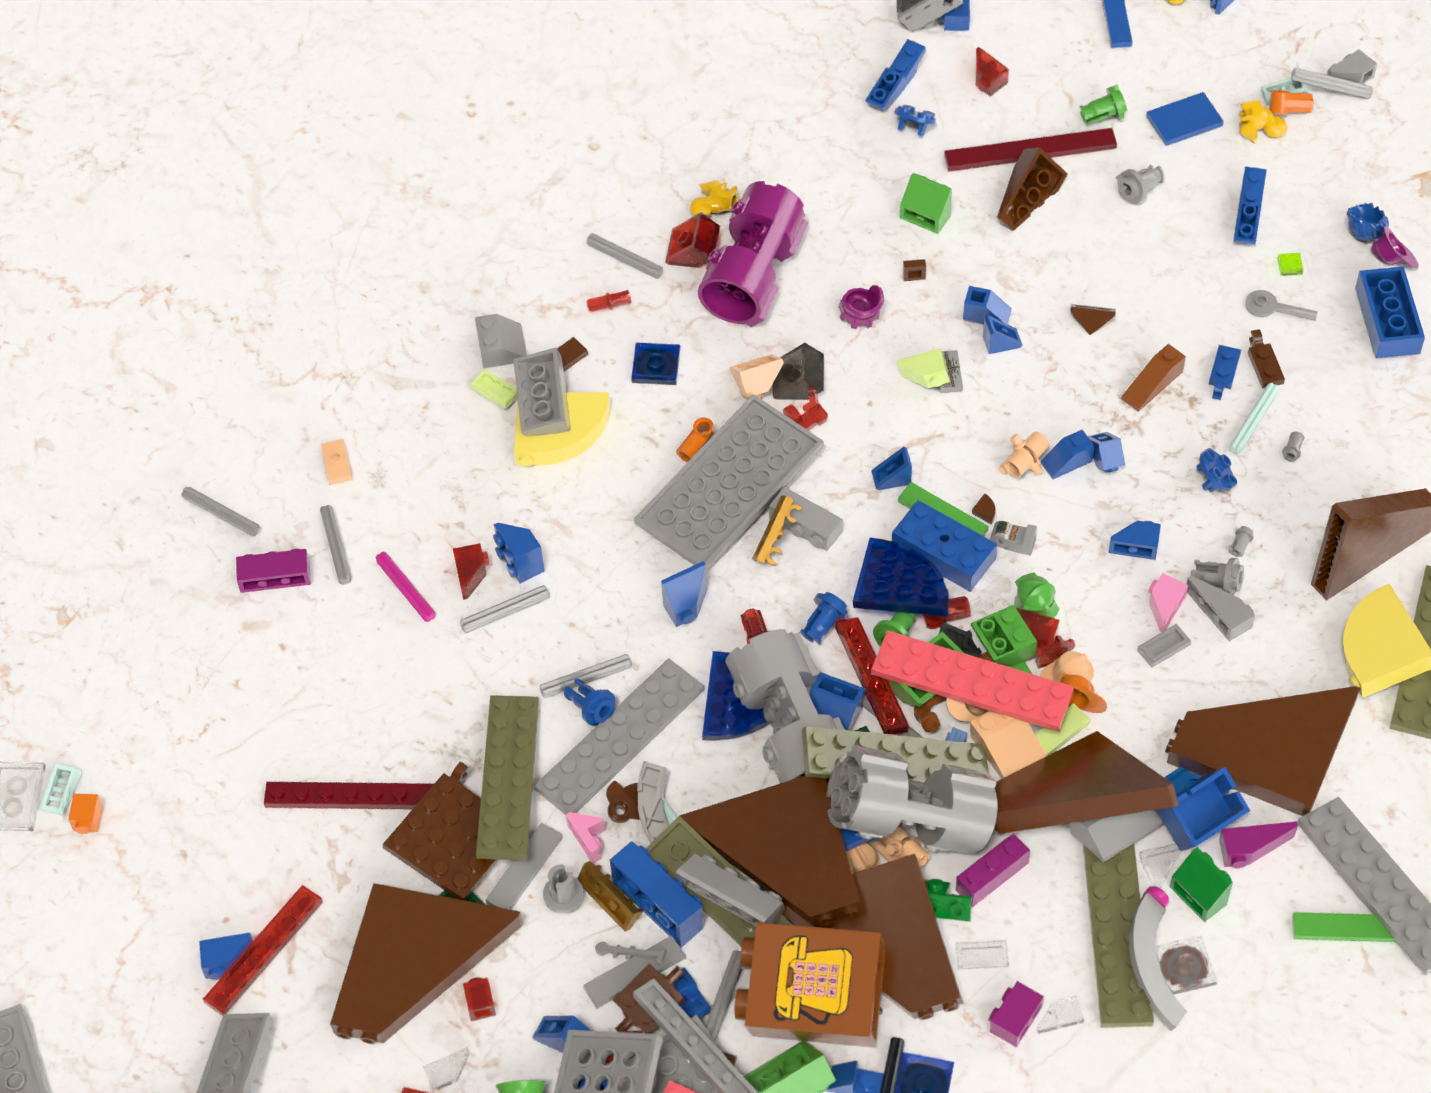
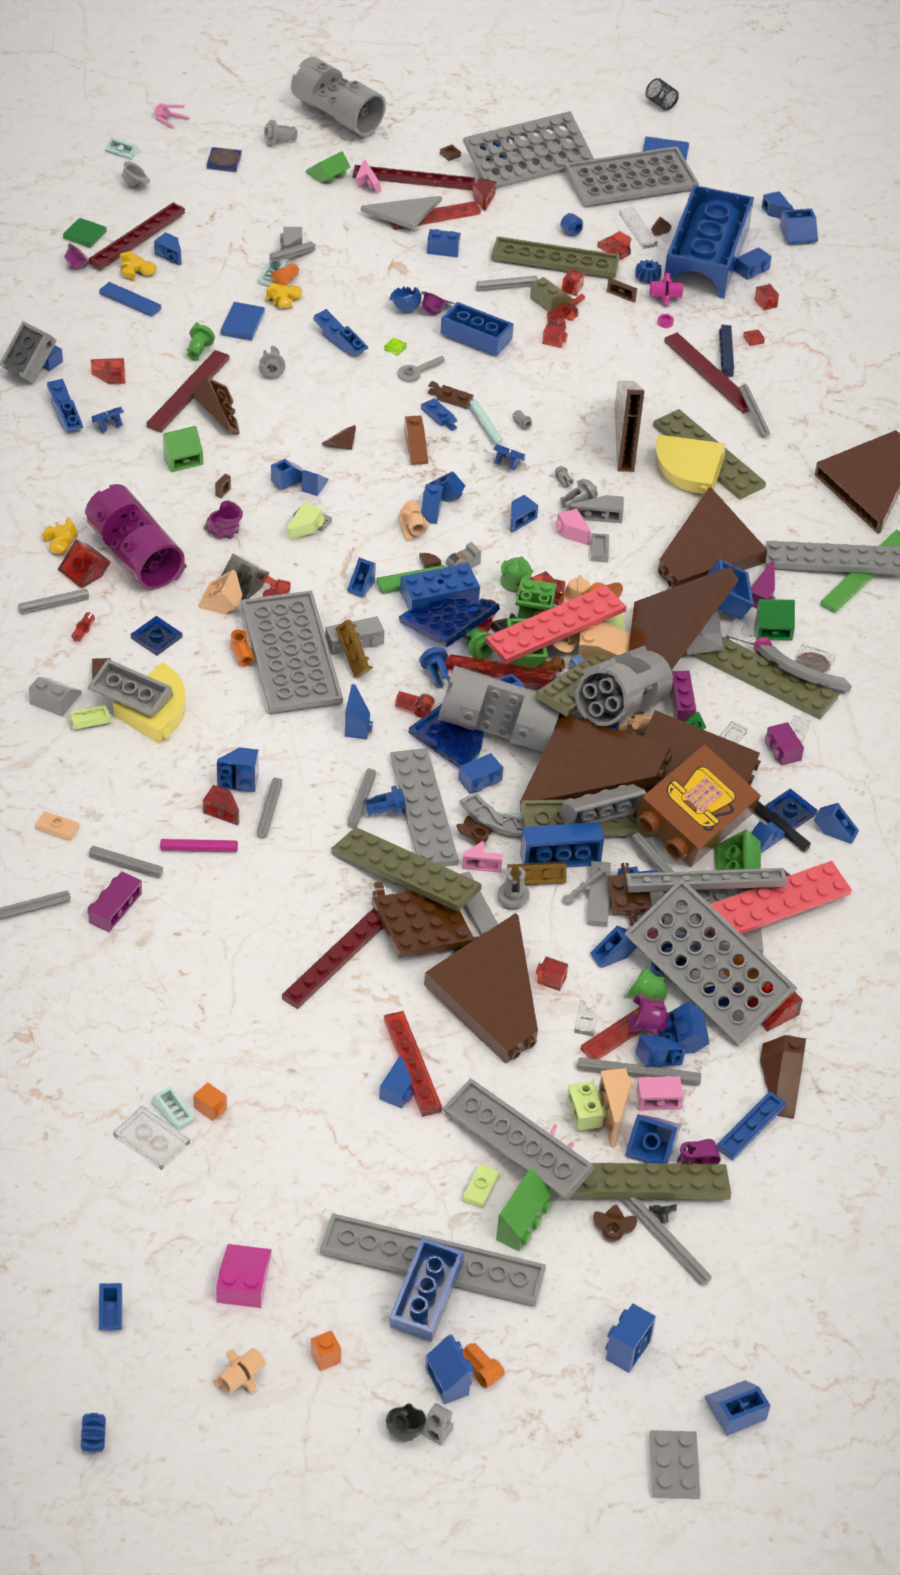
camera: 60 degrees left, 10 degrees down
(707, 755) = (480, 773): none -> blue brick

